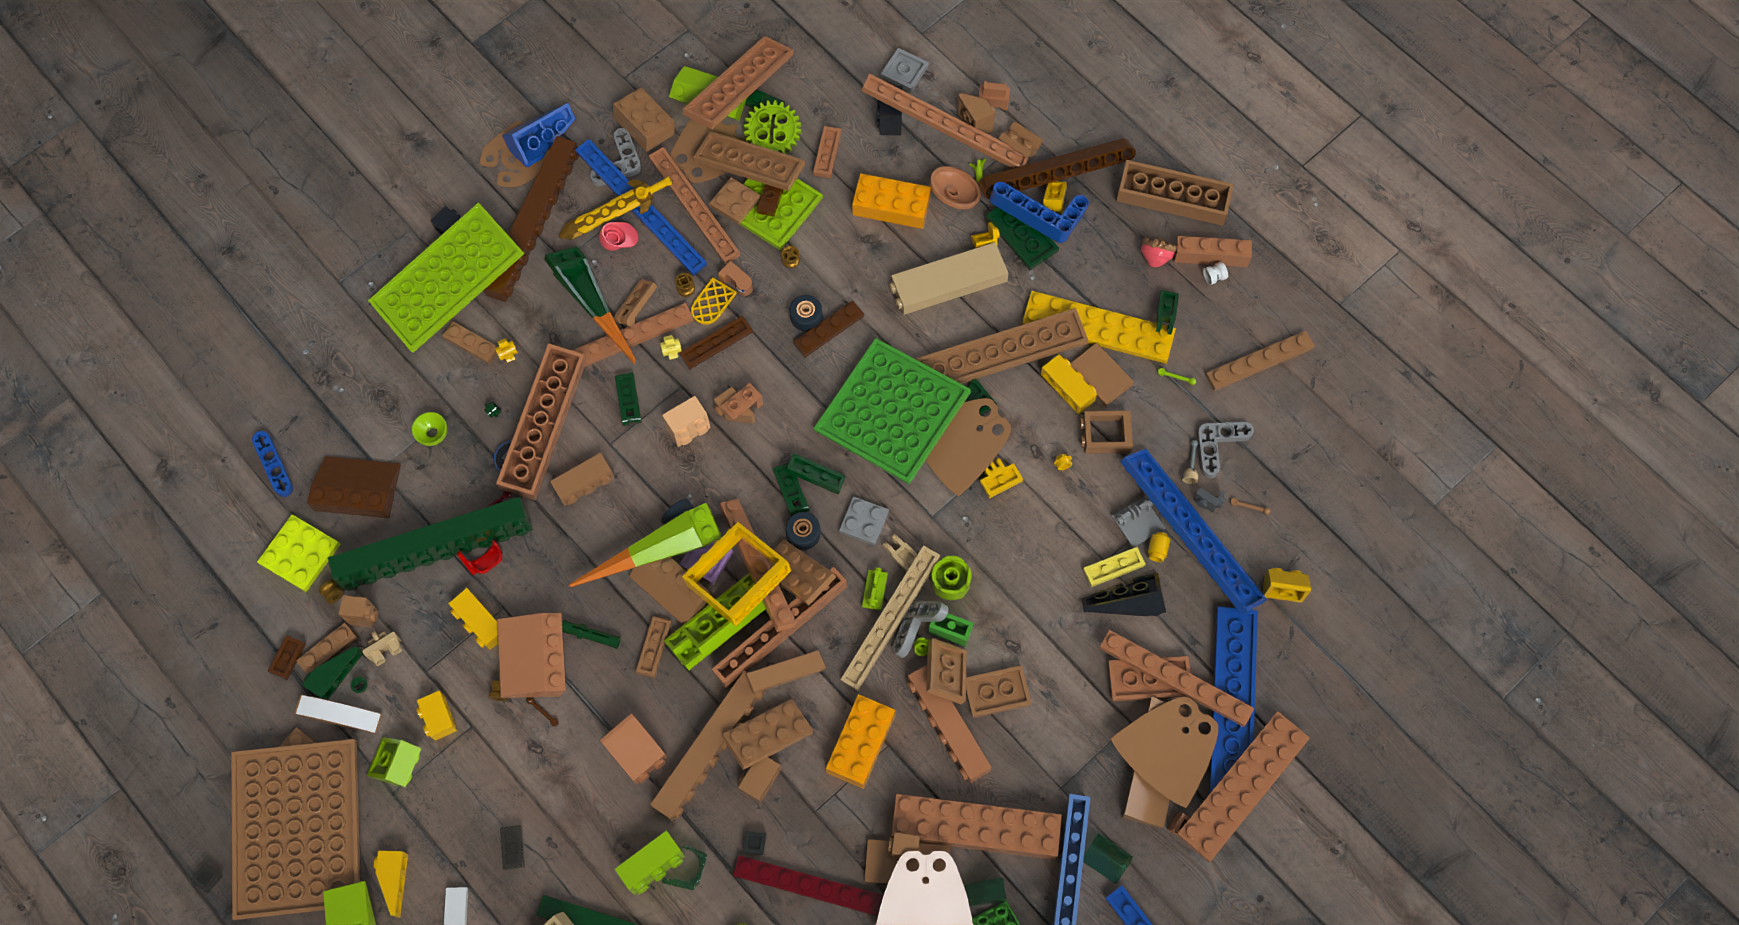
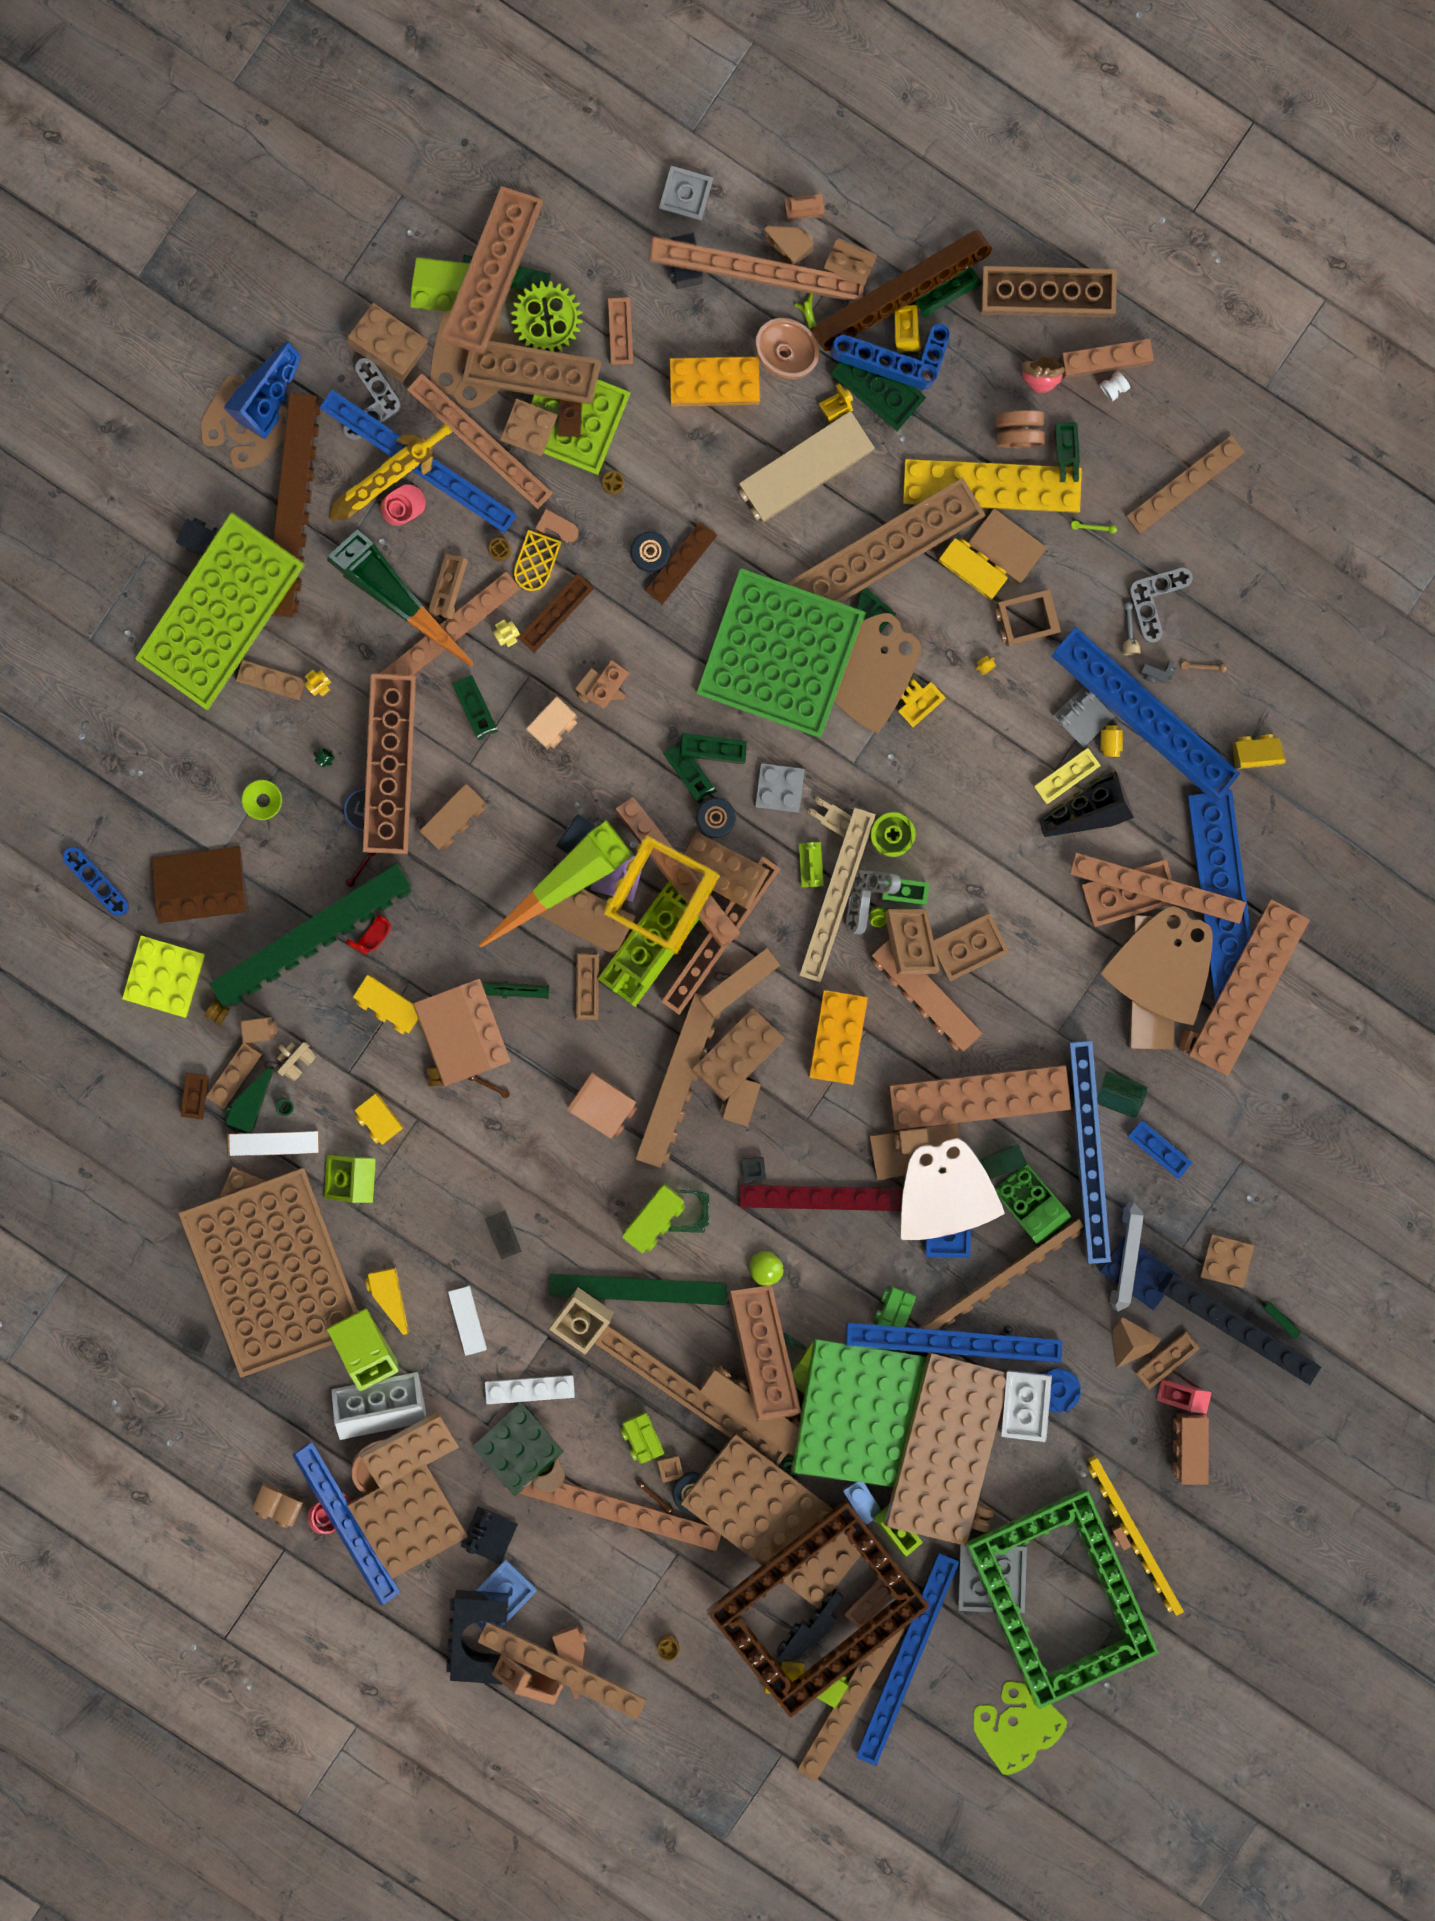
camera: 15 degrees left, 20 degrees up
(1093, 178) = (948, 292): none -> dark green plate
(1131, 284) = (1020, 429): none -> nougat wheel

